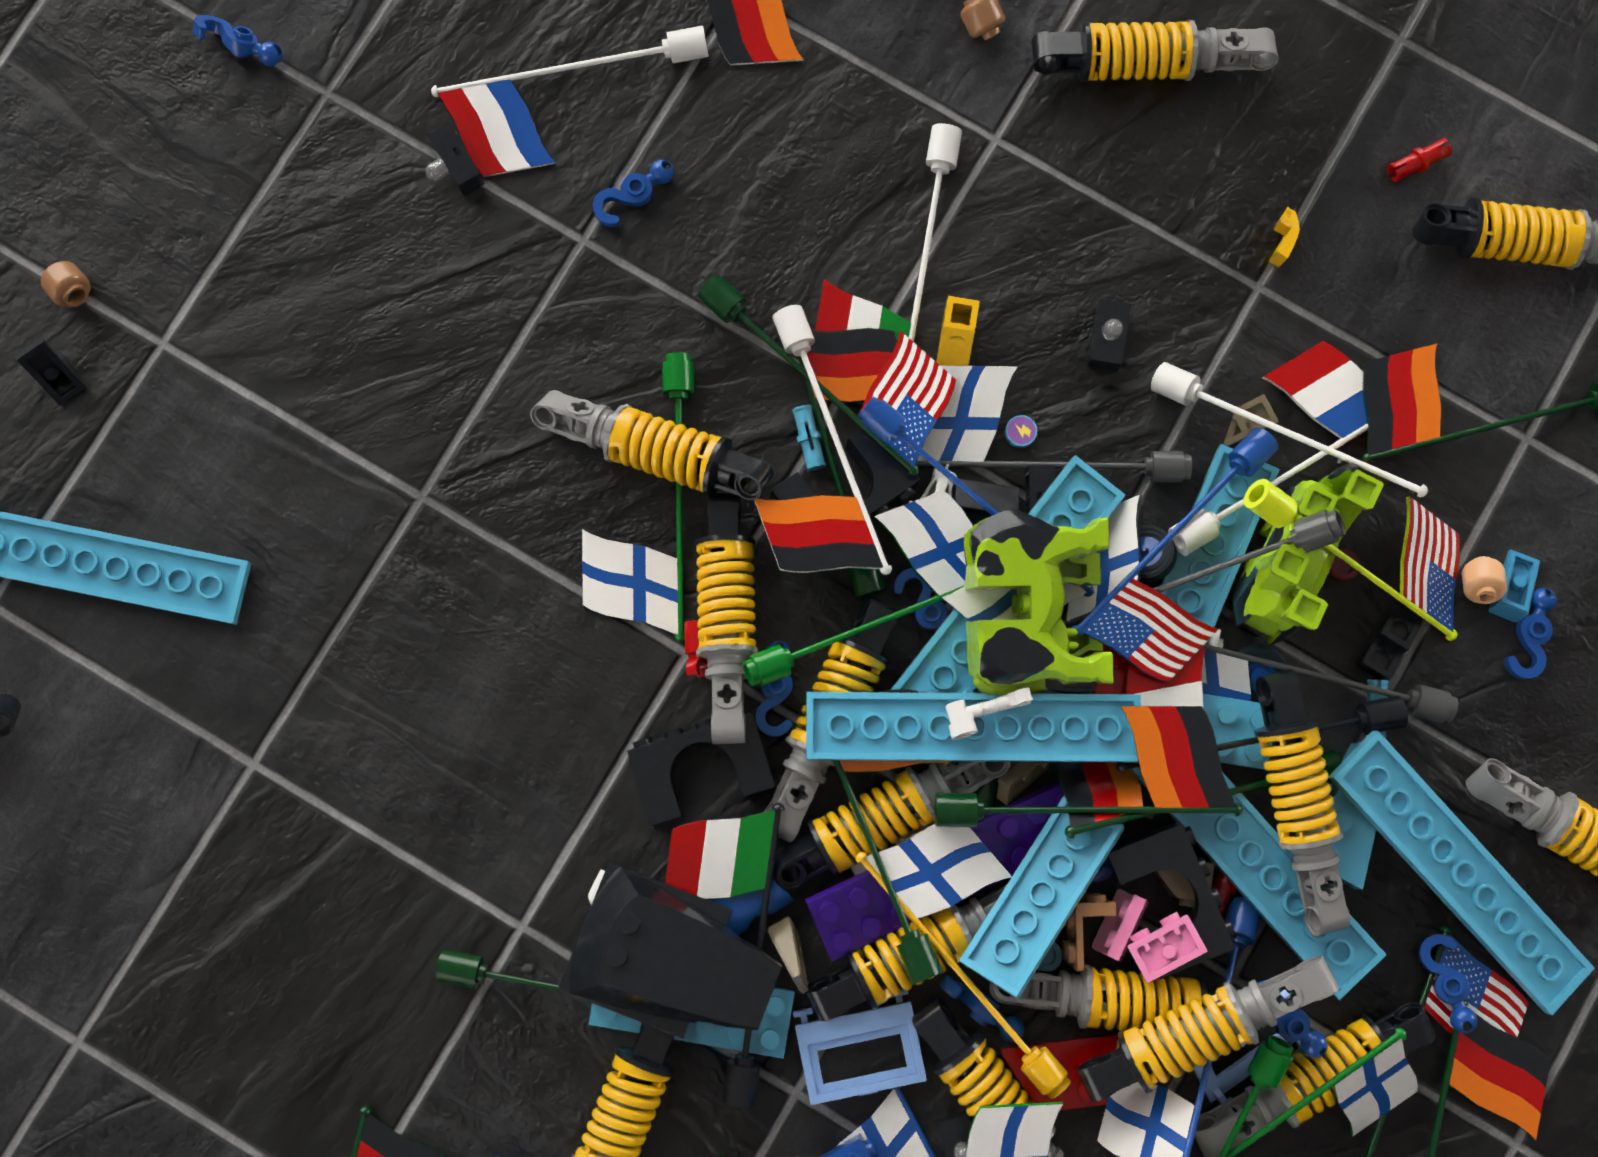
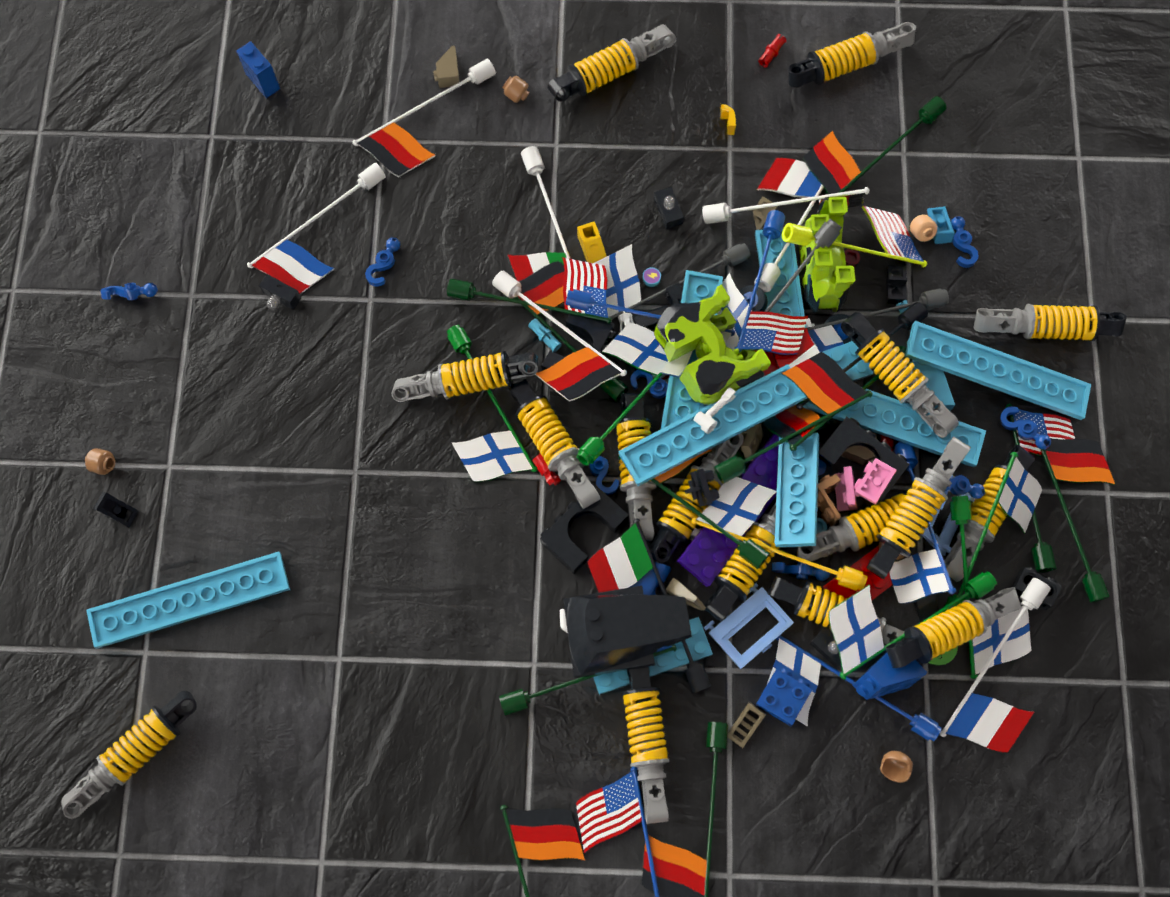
camera: 25 degrees left, 10 degrees down
(895, 814) = (700, 489): none -> black hips

